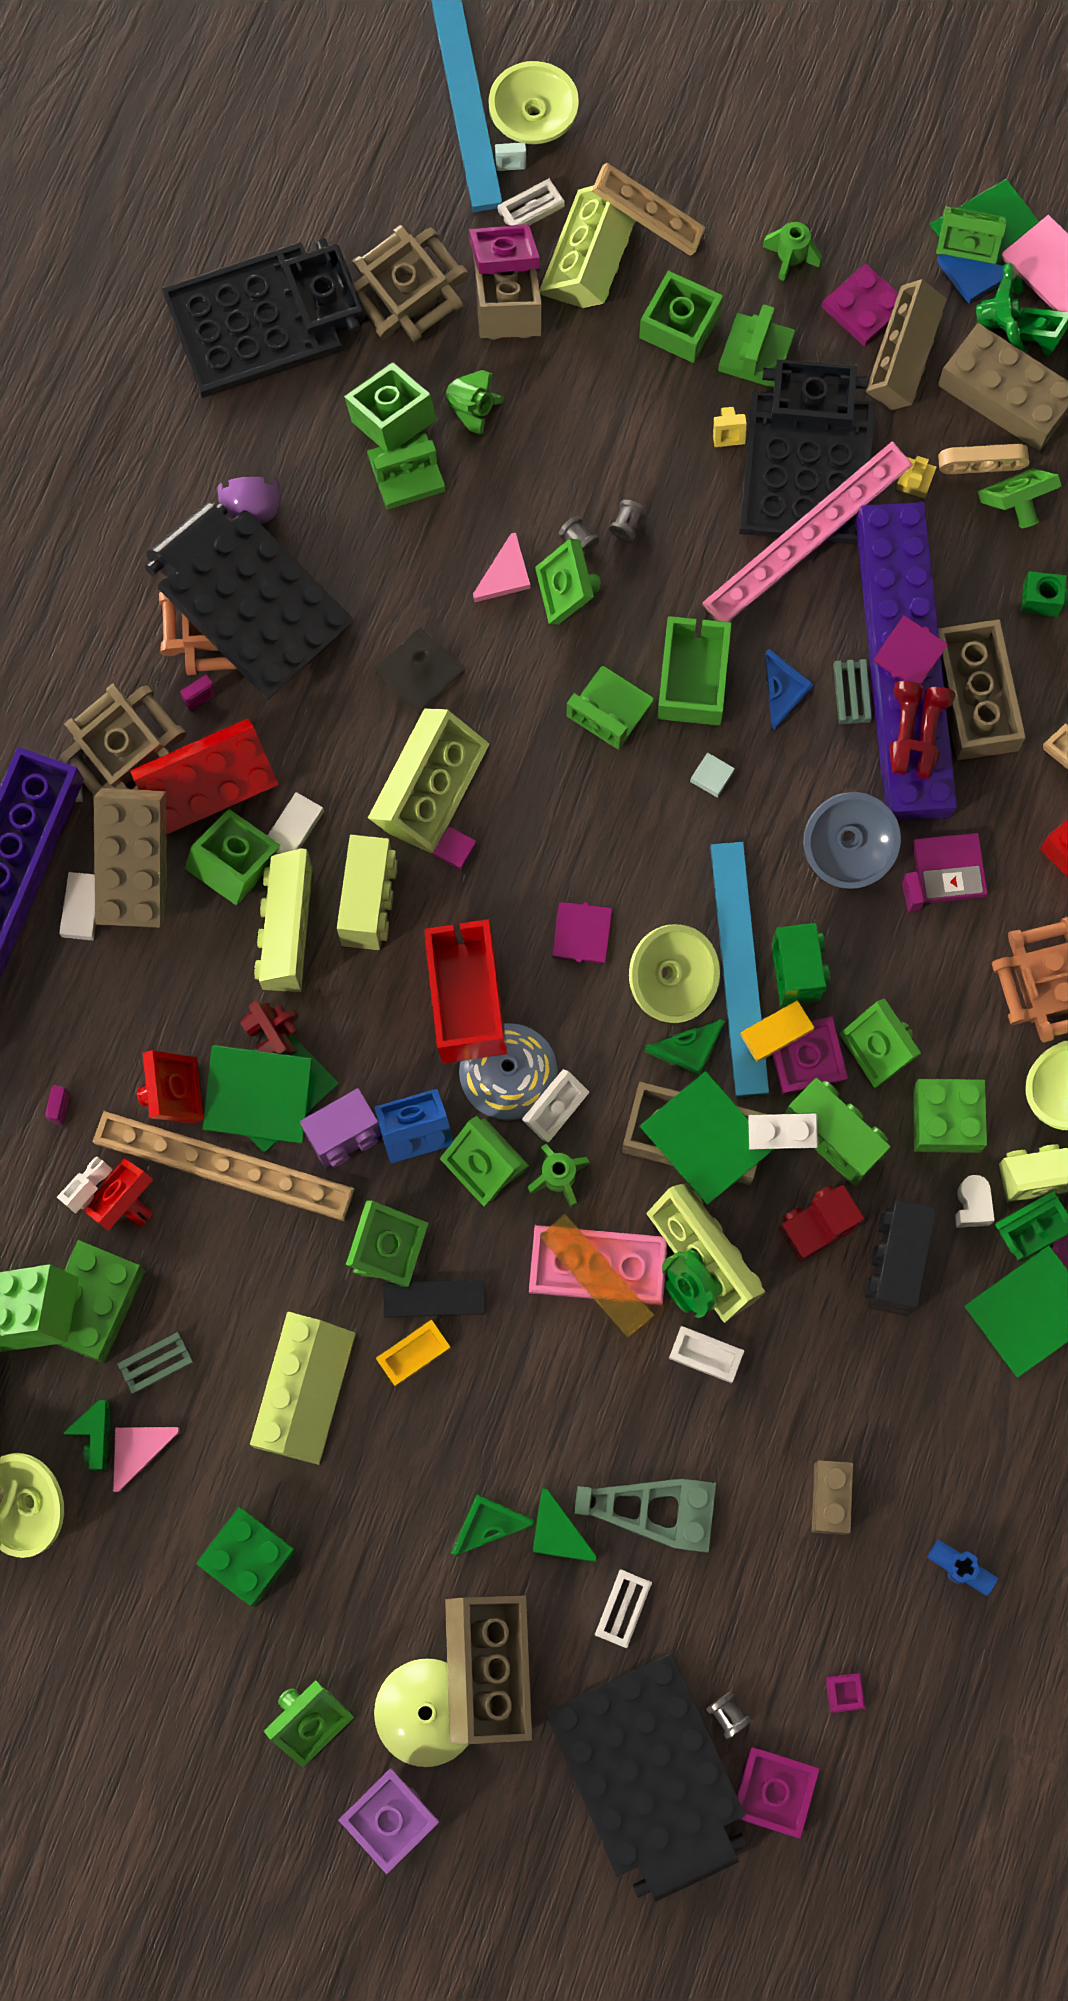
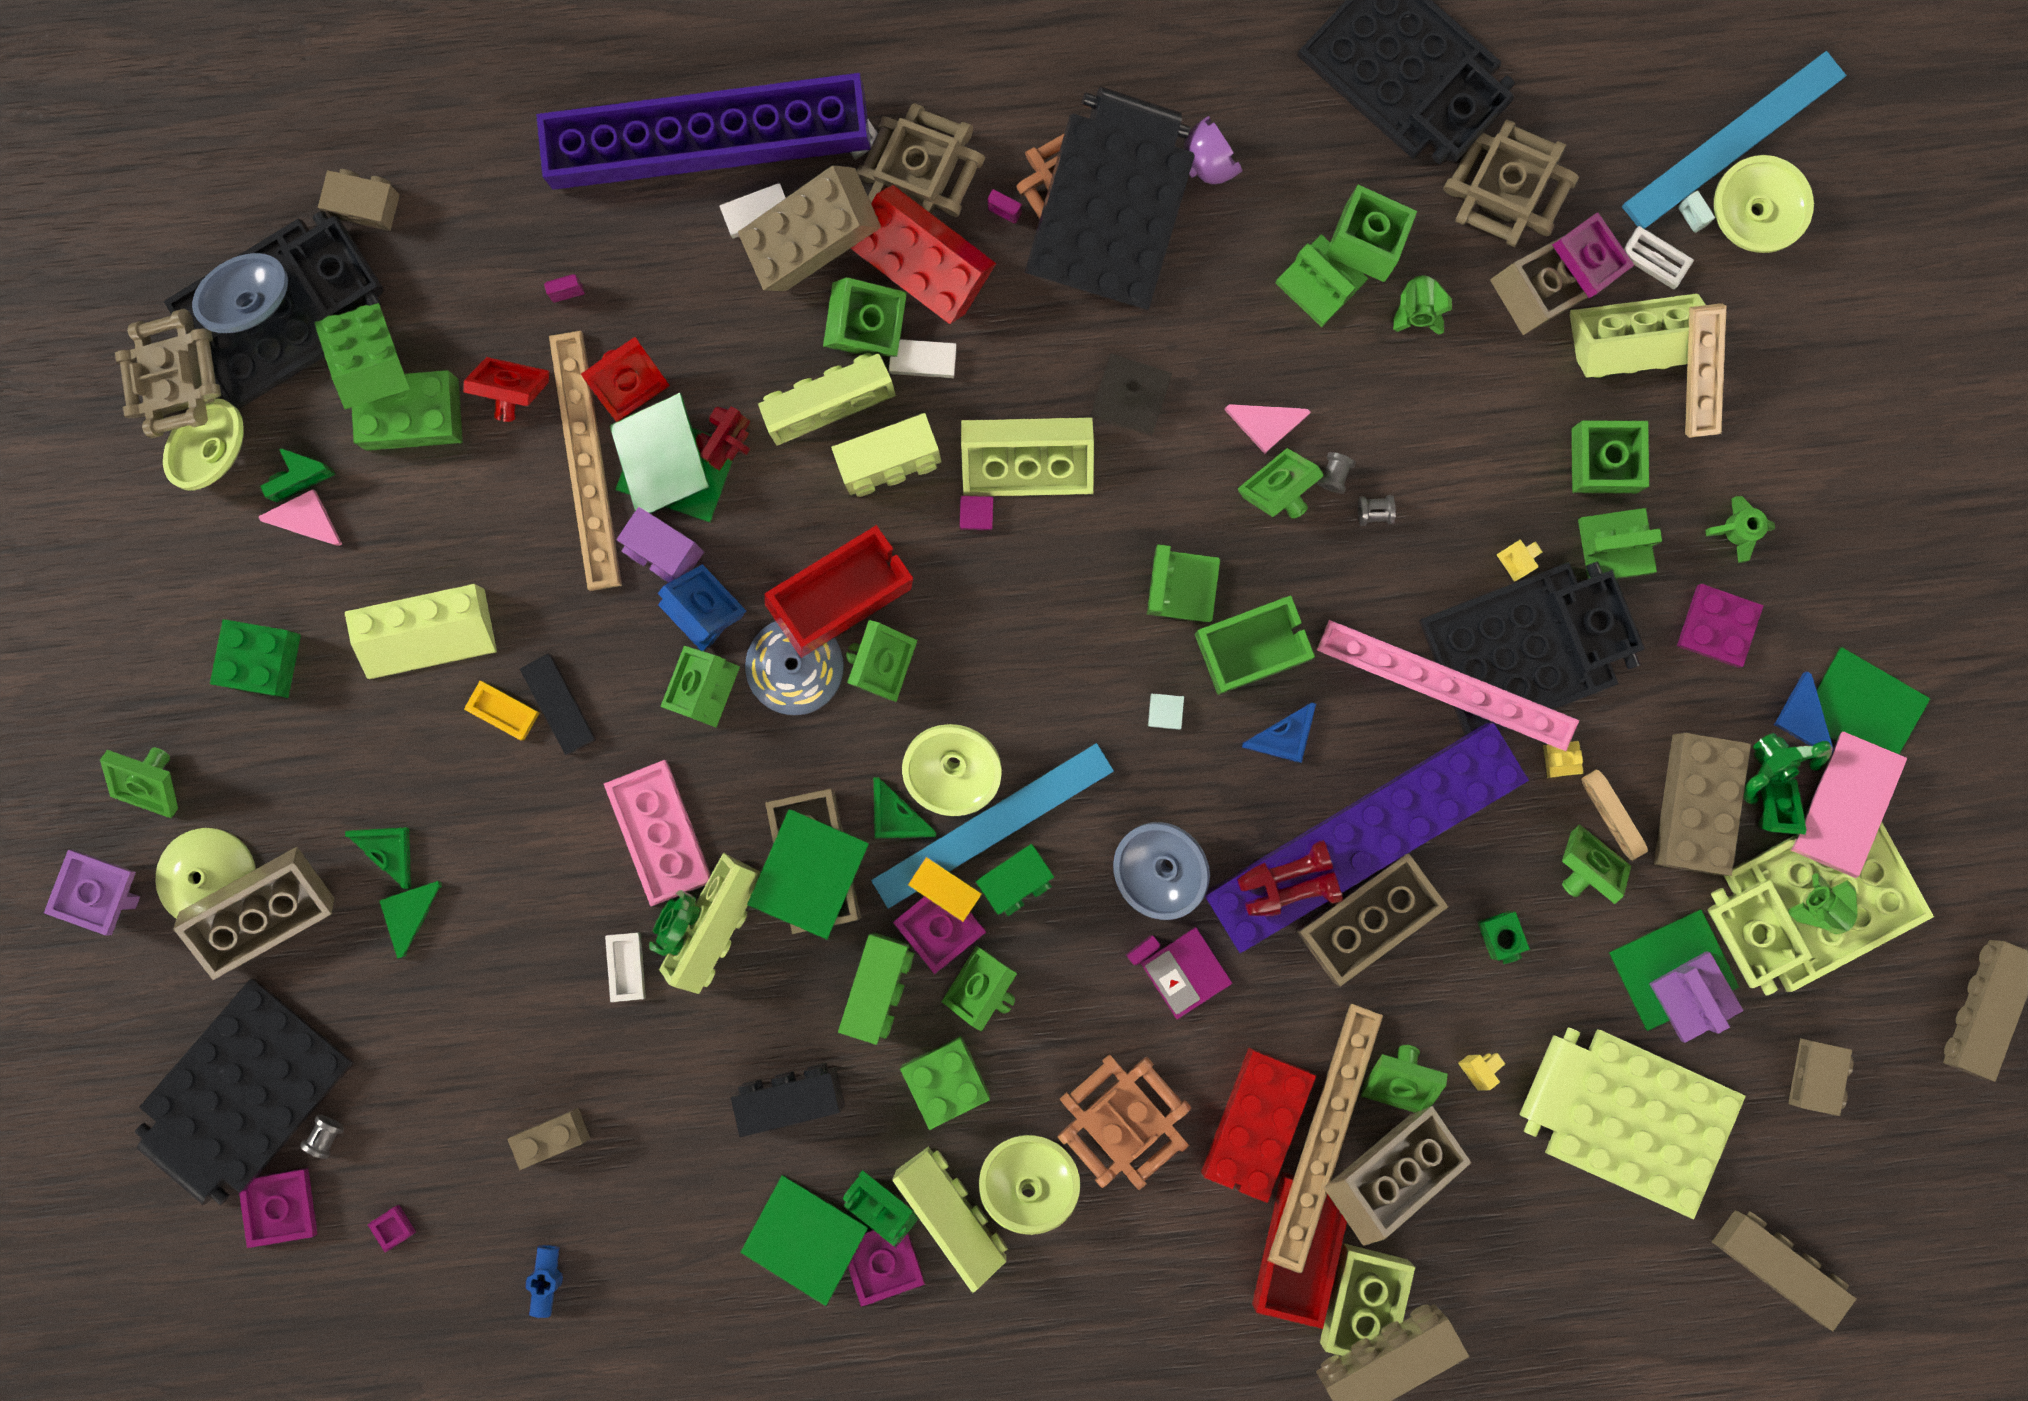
camera: 65 degrees right, 10 degrees up
(82, 1188) = (500, 349): white plate -> none
(129, 1376) = (363, 478): sand green tile -> none
(386, 1244) = (577, 638): bright green bracket -> none
(544, 988) = (881, 660): none -> bright green tile
(555, 1105) = (780, 724): white plate -> none
(558, 1182) = (728, 761): bright green brick -> none
(582, 932) = (956, 667): magenta piece -> none
(596, 1276) = (643, 836): clear yellow tile -> none
(612, 1636) = (399, 999): white tile -> none
(693, 1515) = (480, 1024): sand green plate -> none
(783, 1131) = (842, 941): white plate -> none
(822, 1224) = (787, 1013): dark red brick -> none
(850, 666) = (1338, 787): sand green tile -> none
(906, 345) = (1694, 685): dark tan brick -> none
(910, 651) = (1367, 839): magenta piece -> none
(971, 235) = (1847, 692): bright green bracket -> none
(976, 1201) = (879, 1144): white leg -> none

